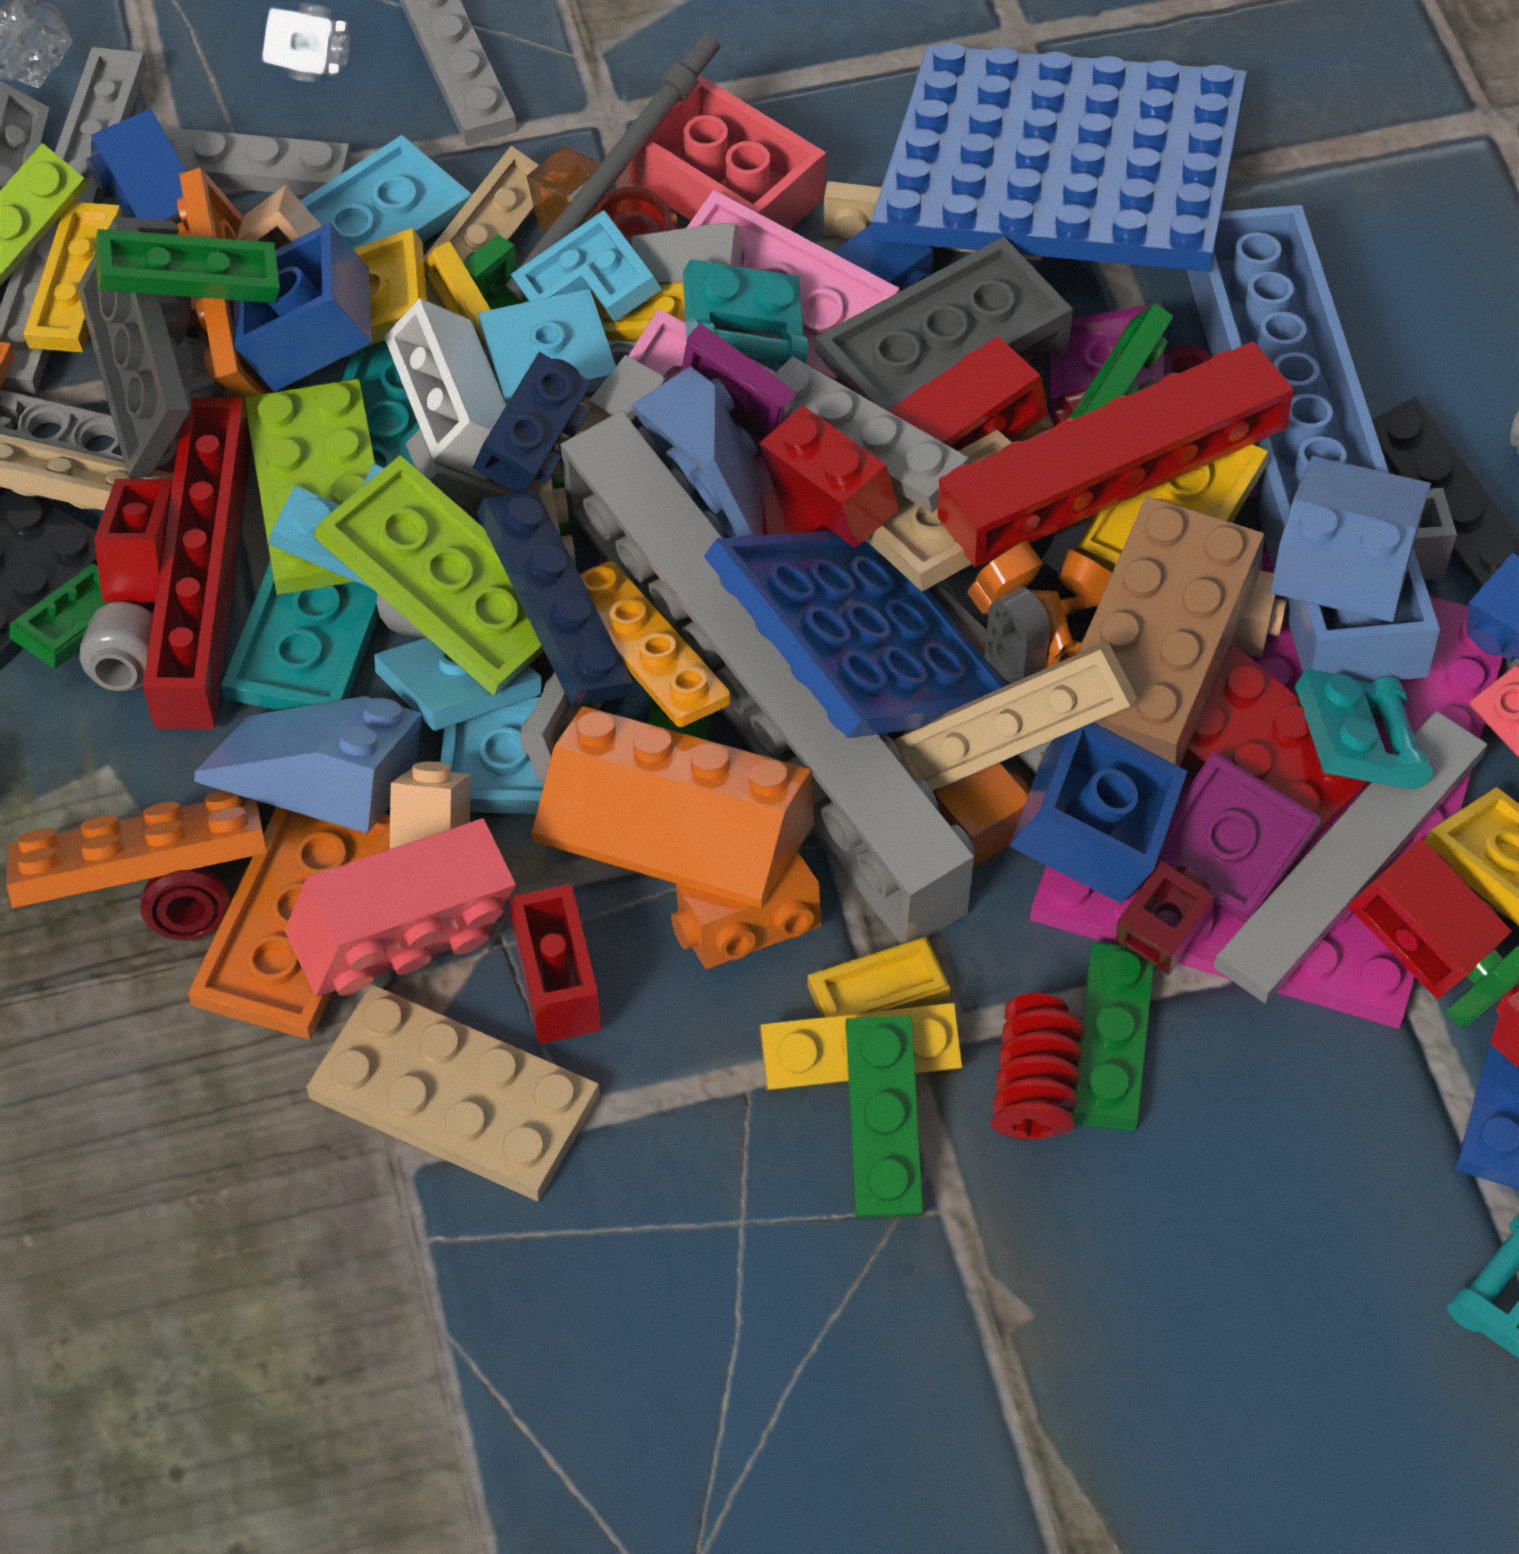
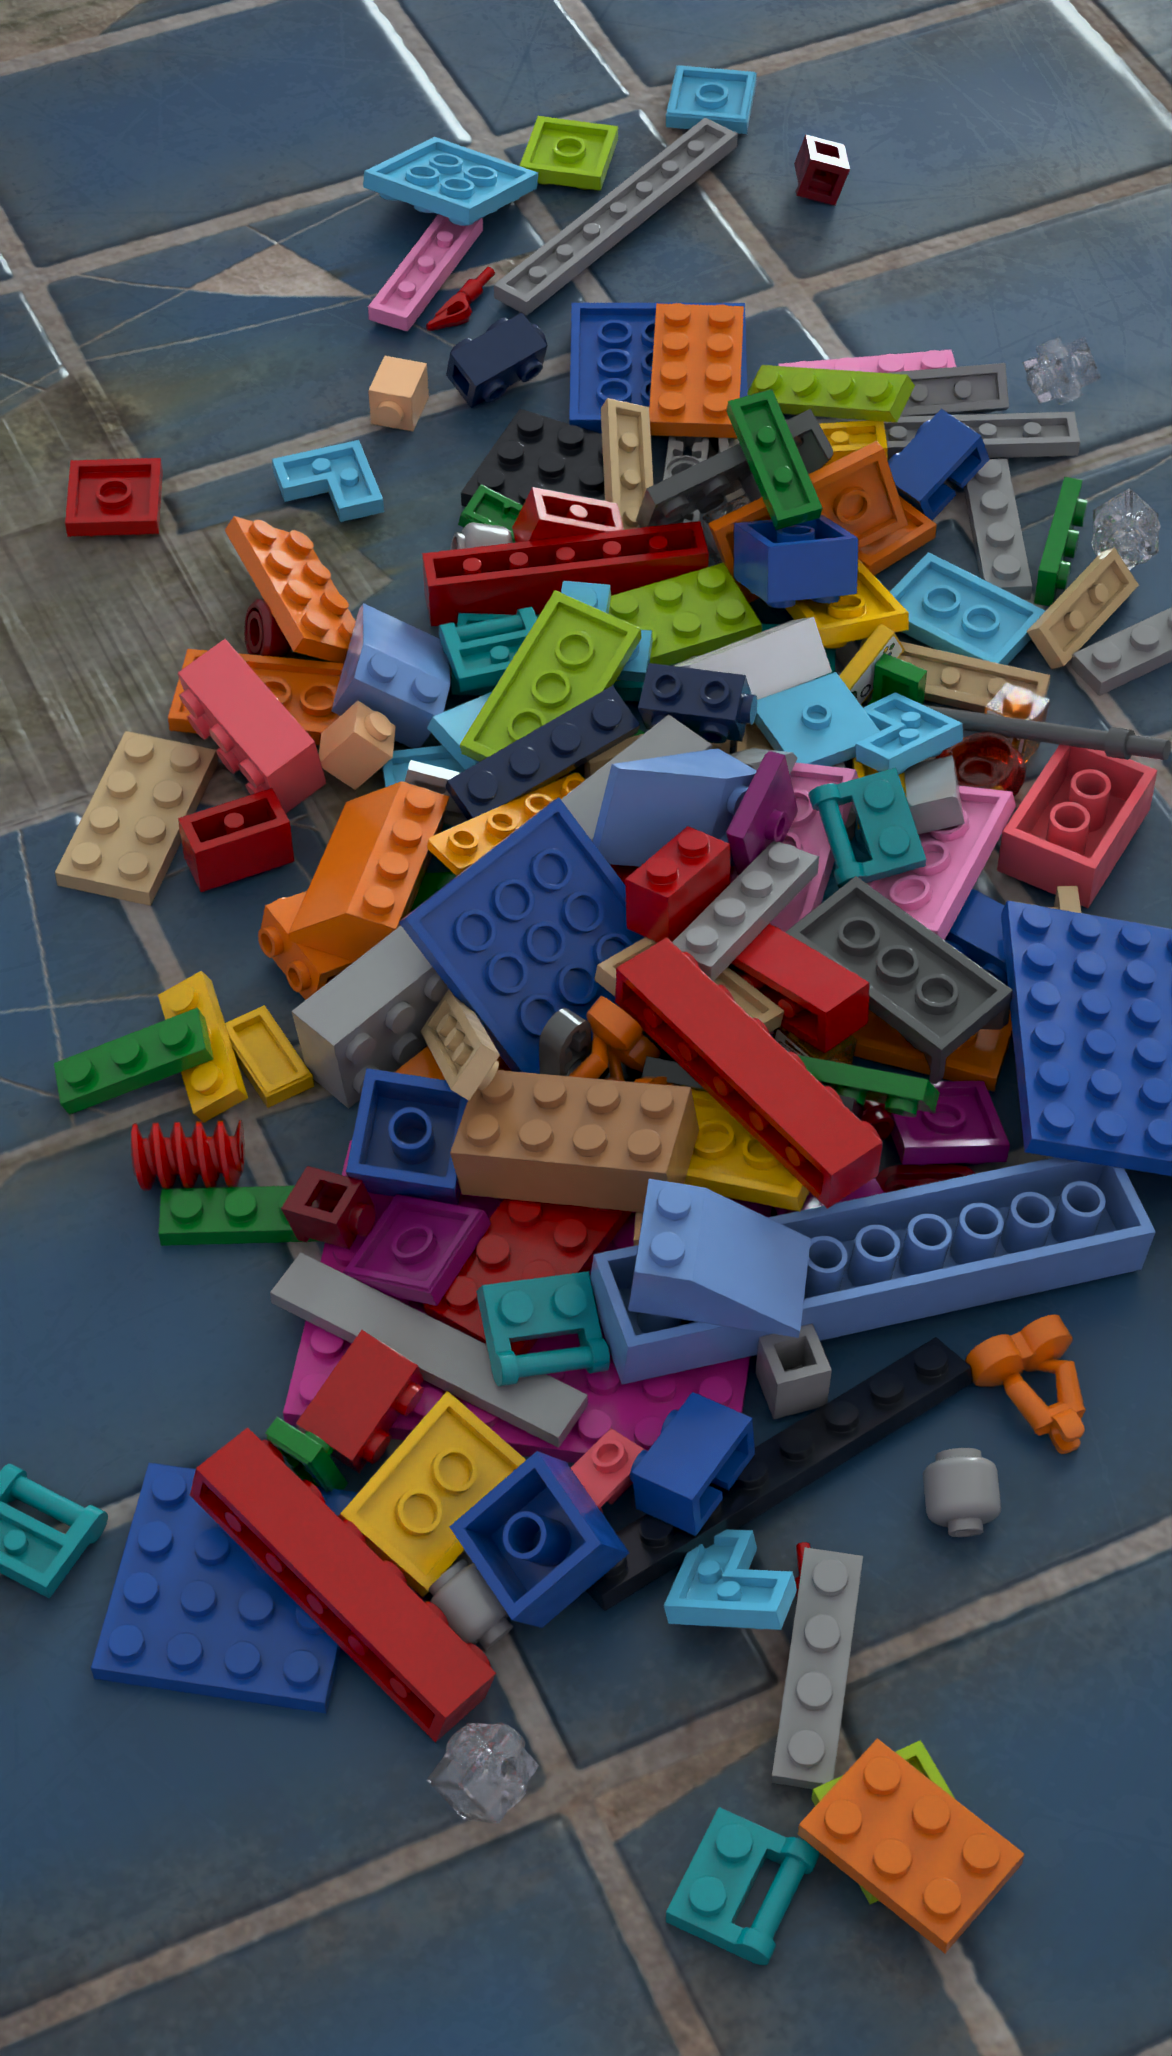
camera: 80 degrees right, 5 degrees down
(278, 220) = (891, 544): light nougat brick -> none
(290, 104) = (1061, 542): none -> green plate
(333, 644) = (484, 648): none -> teal plate
(401, 107) = (1082, 608): none -> tan plate
(1401, 369) = (1035, 1348): none -> orange piece

